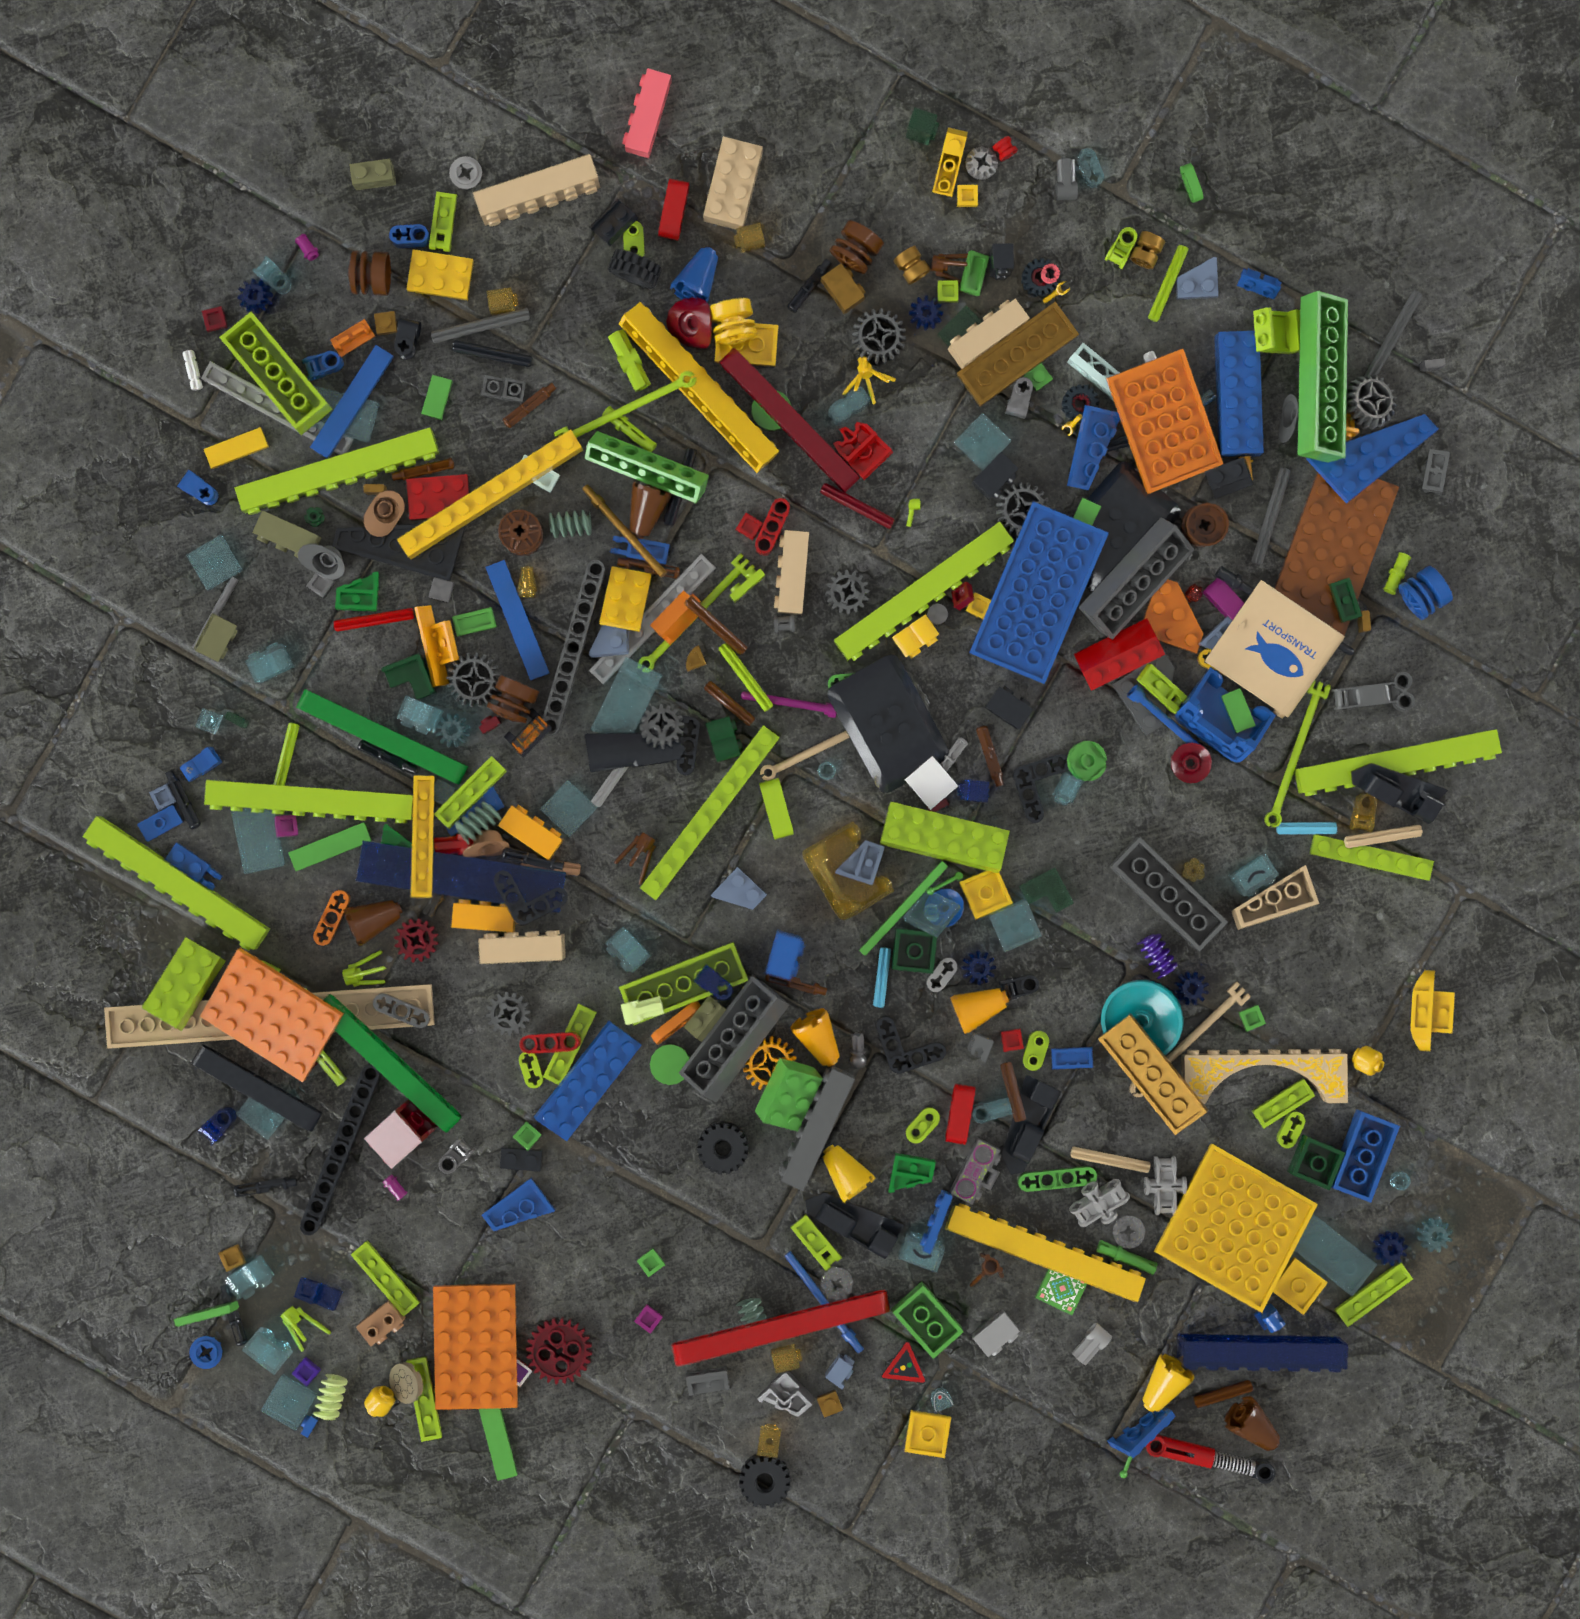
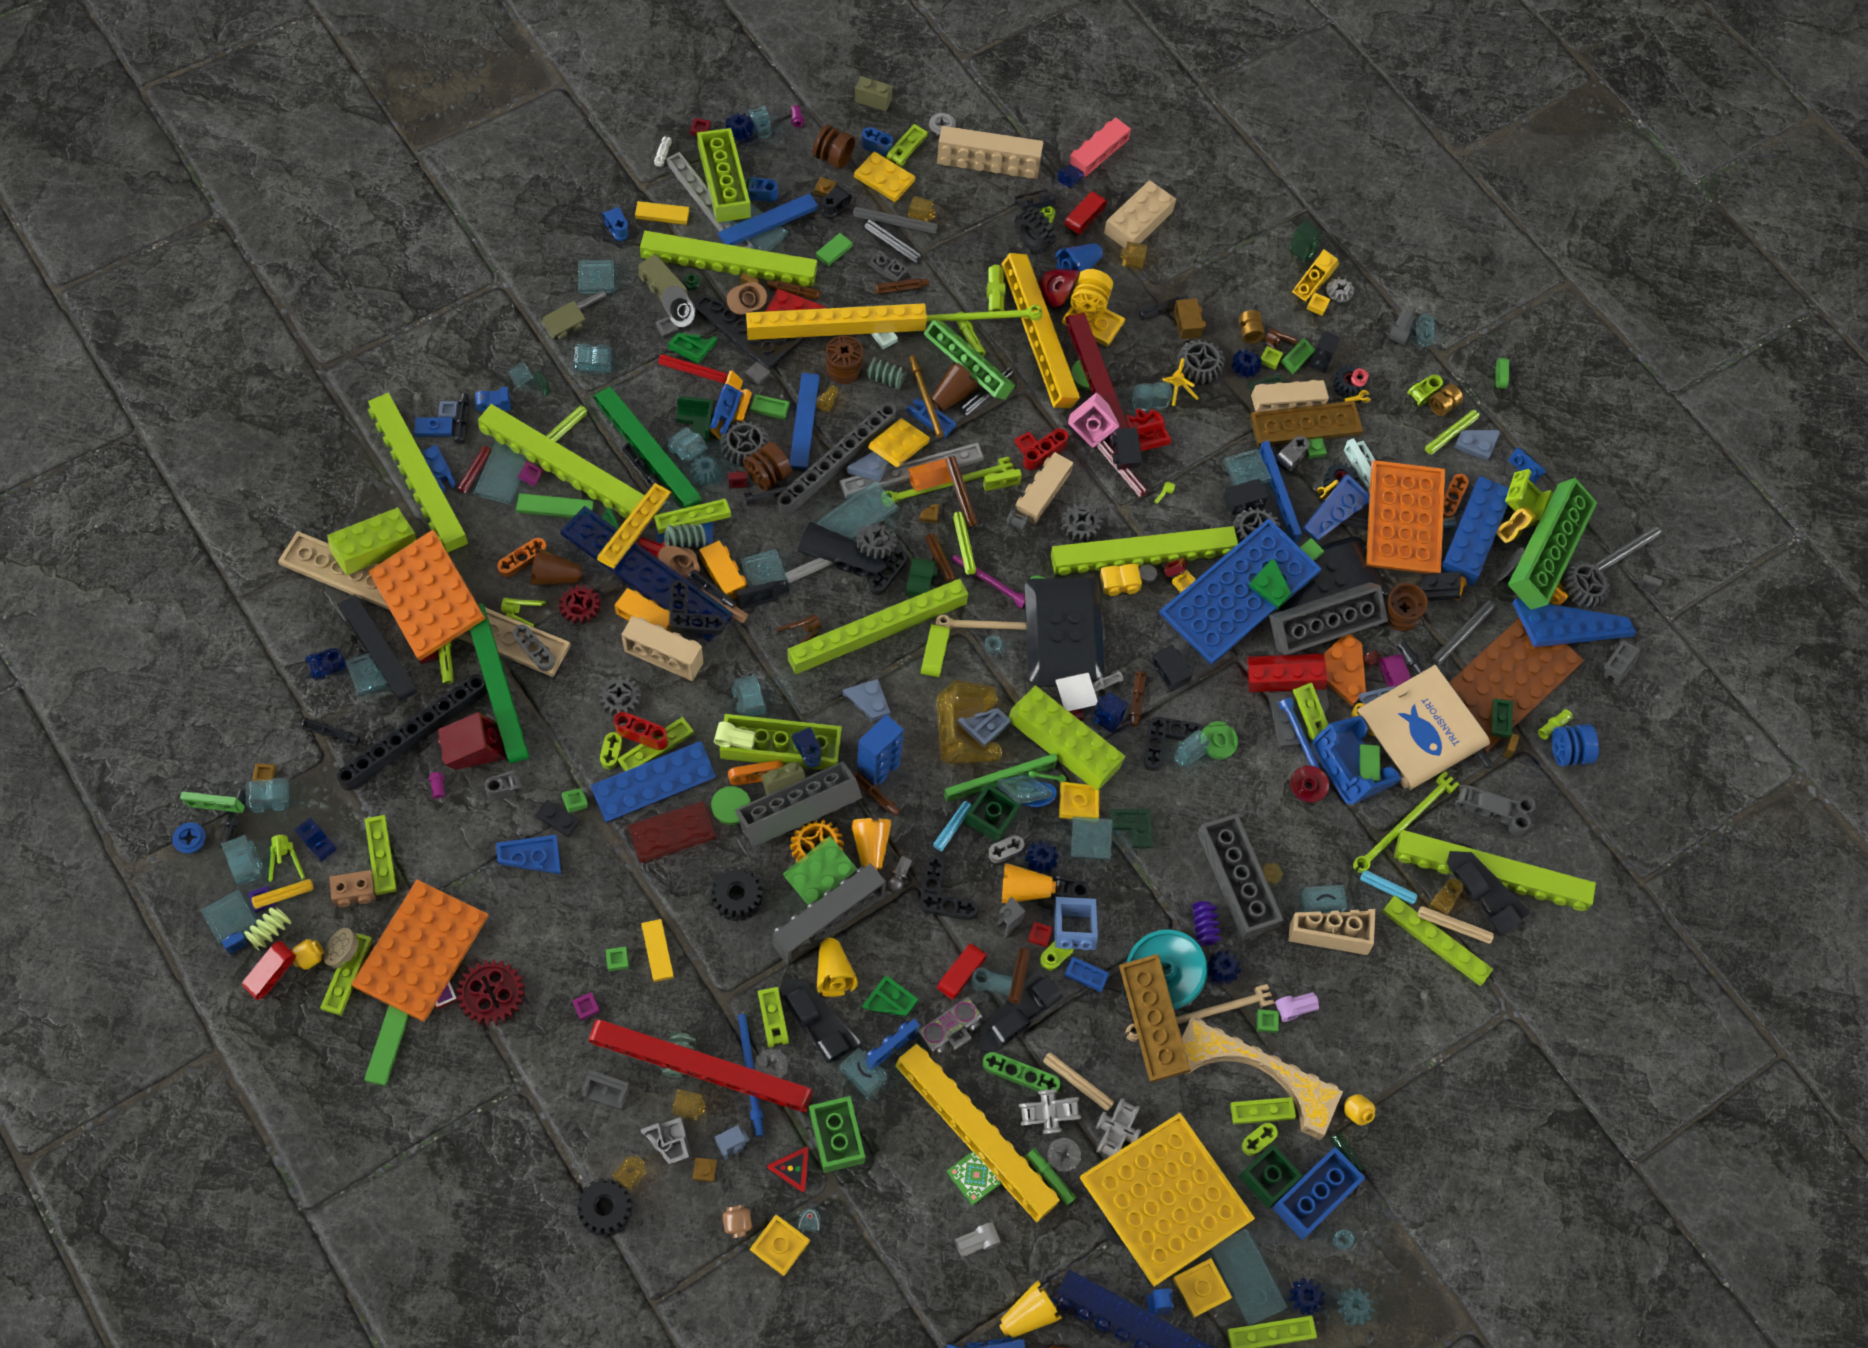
camera: 20 degrees right, 25 degrees down
(229, 848) = (474, 469): none -> dark red axle
(322, 1360) = (282, 893): none -> yellow axle
(352, 338) = (800, 184): orange hinge -> none
(357, 1435) = (268, 970): none -> beam
(436, 656) = (726, 407): none -> blue hinge
(582, 835) = (761, 593): none -> black hinge
(629, 562) = (944, 442): reddish brown piece -> none
(630, 1117) = (671, 831): none -> clear red piece
(633, 167) = (1069, 176): none -> clear blue bracket
(681, 1234) = (657, 950): none -> yellow tile
(805, 471) = (1093, 420): none -> bright pink slope
(854, 490) = (1126, 448): none -> black brick
(858, 244) = (1215, 292): reddish brown wheel -> none
(881, 1433) = (737, 1220): none -> medium nougat head
(923, 1125) = (922, 963): lime plate -> none
(989, 1267) = (919, 1110): reddish brown plant -> none
(995, 1333) = (893, 1182): light grey brick -> none
(1005, 148) = (1363, 286): red wheel -> none
(1026, 451) = (1280, 493): none -> blue tile
(1032, 1001) = (1075, 908): none -> medium blue window
(1067, 575) = (1271, 584): none -> green wing
(1206, 356) = (1459, 492): none -> orange beam
(1268, 993) = (1291, 1008): none -> lavender piece
(1277, 371) = (1518, 522): none -> yellow brick
(1372, 1103) = (1343, 1146): none -> clear green pin
(1430, 1011) = (1436, 1098): yellow plate -> none

